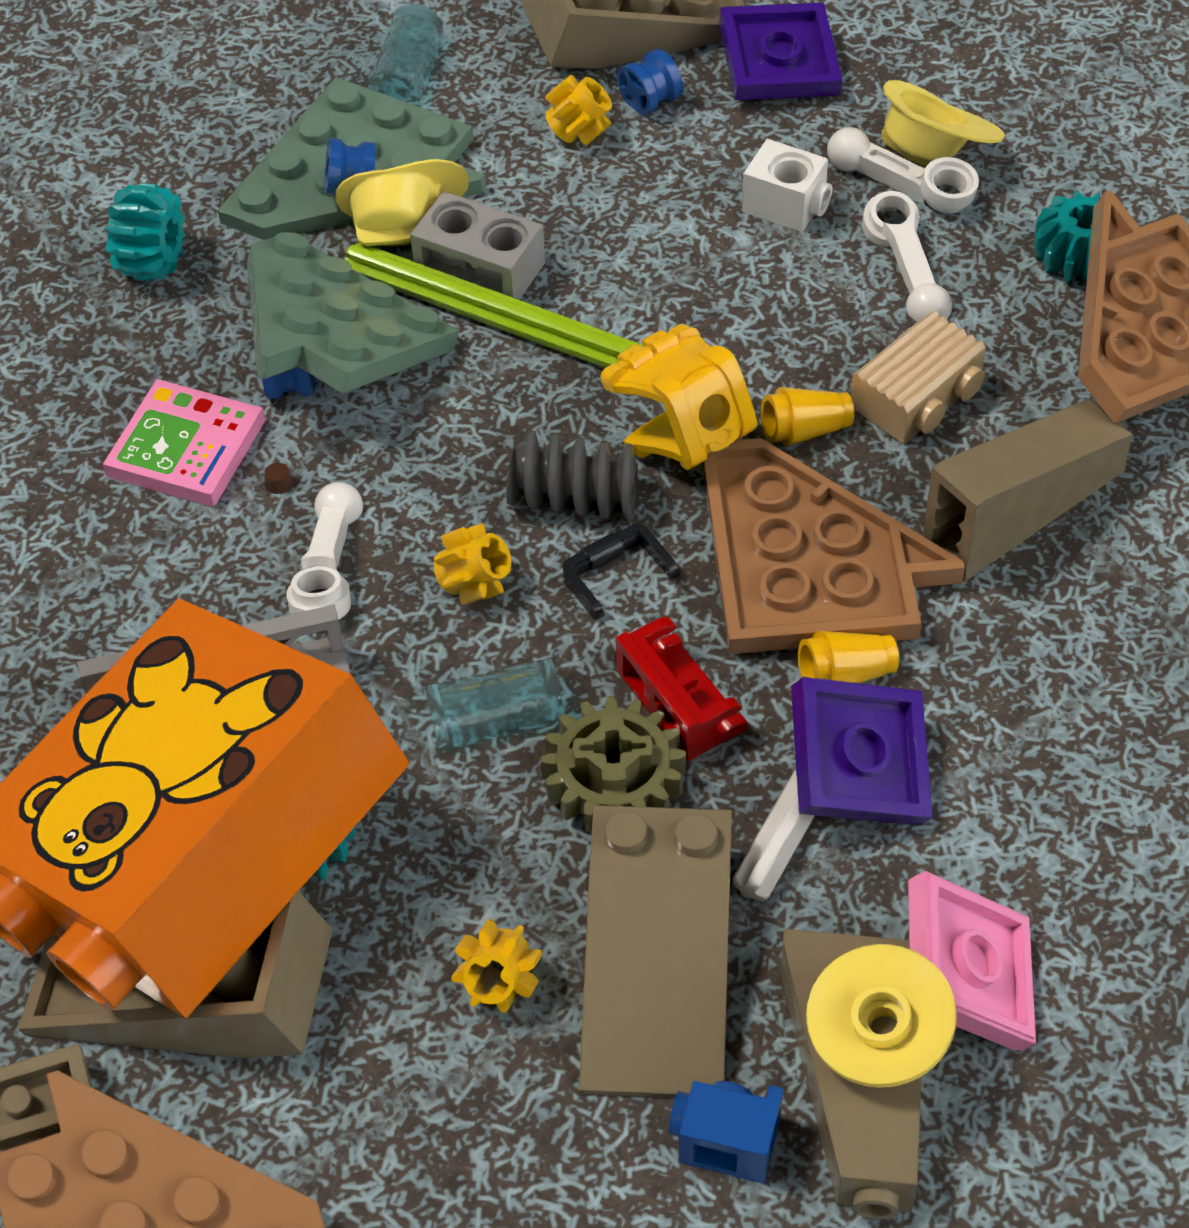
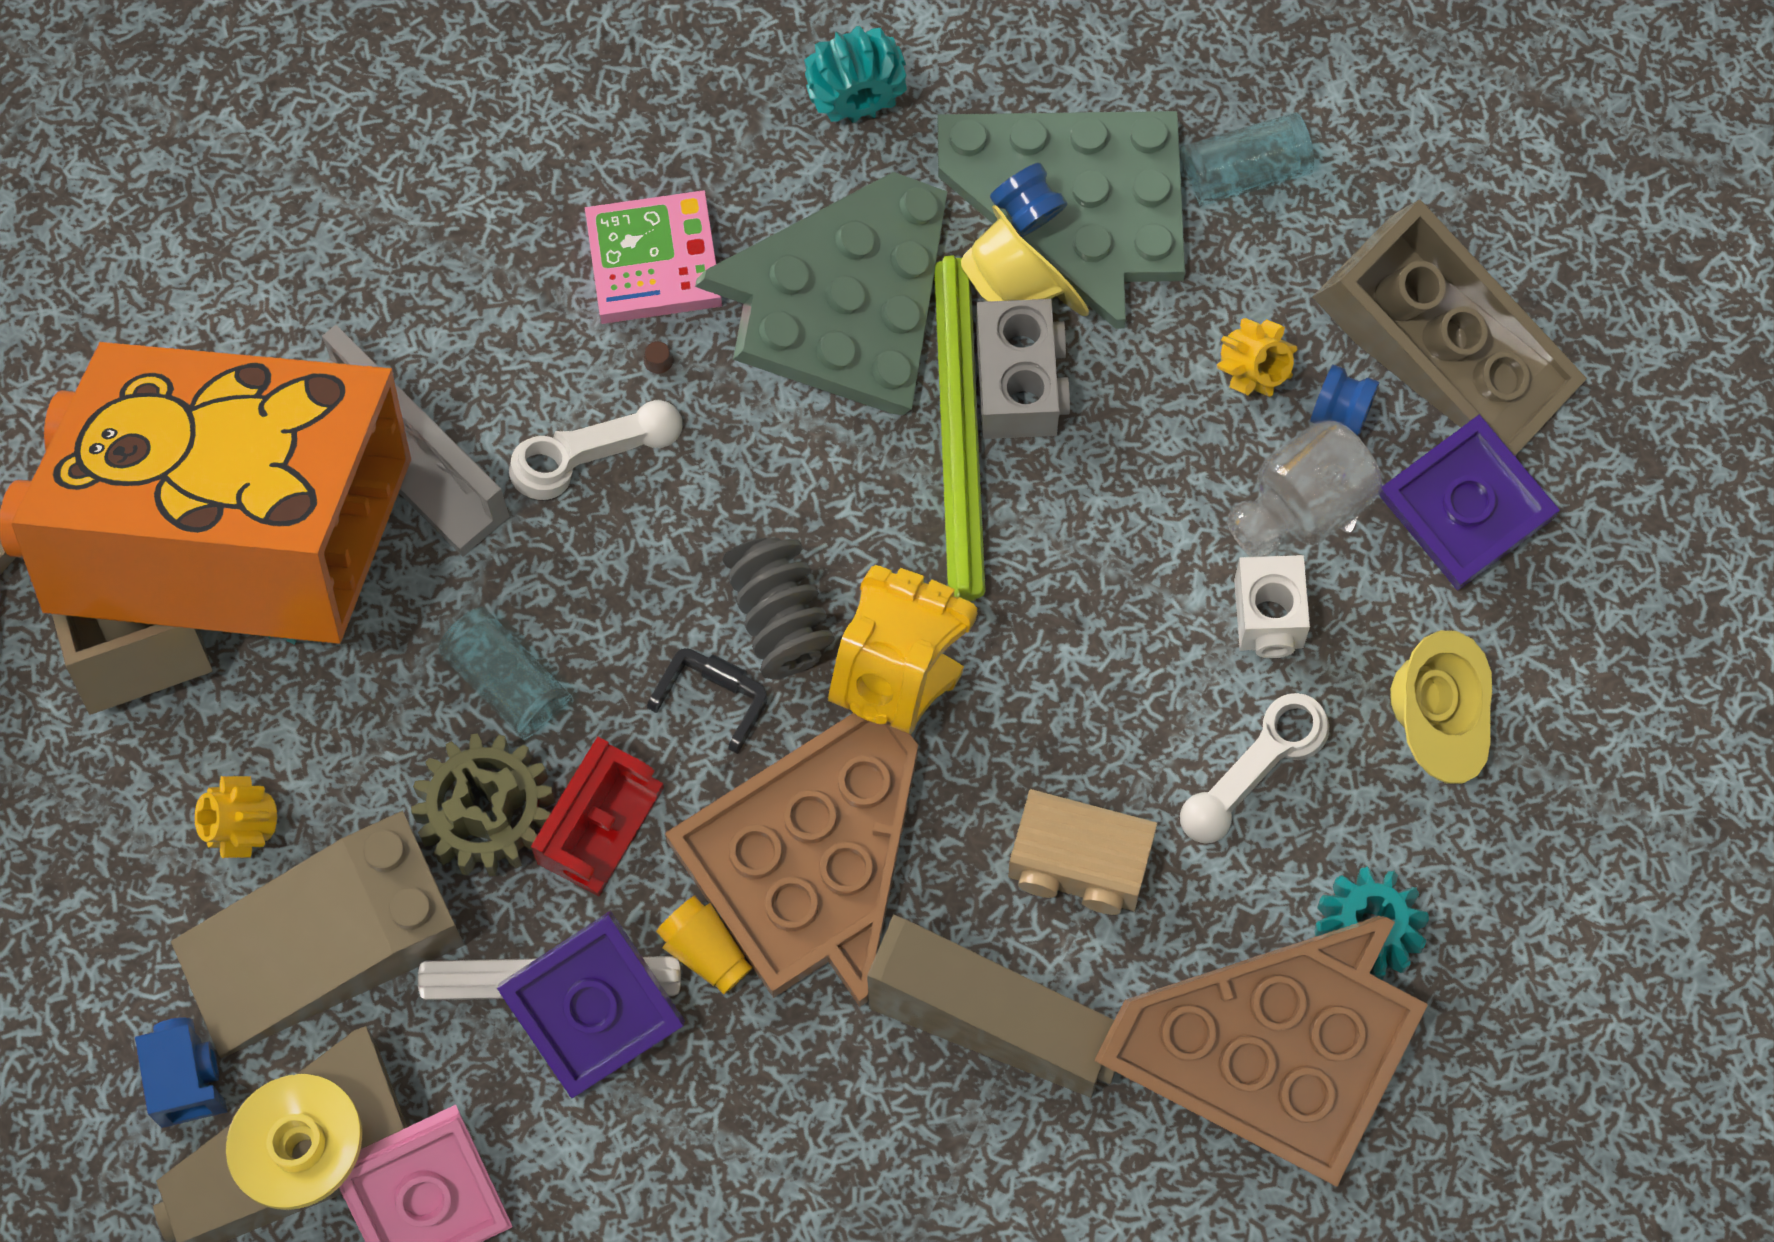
camera: 60 degrees right, 15 degrees up
(472, 564) = (648, 572): yellow gear -> none
(710, 121) = (1308, 490): none -> clear piece
(804, 414) = (979, 769): yellow cone -> none
(852, 151) = (1368, 642): white piece -> none

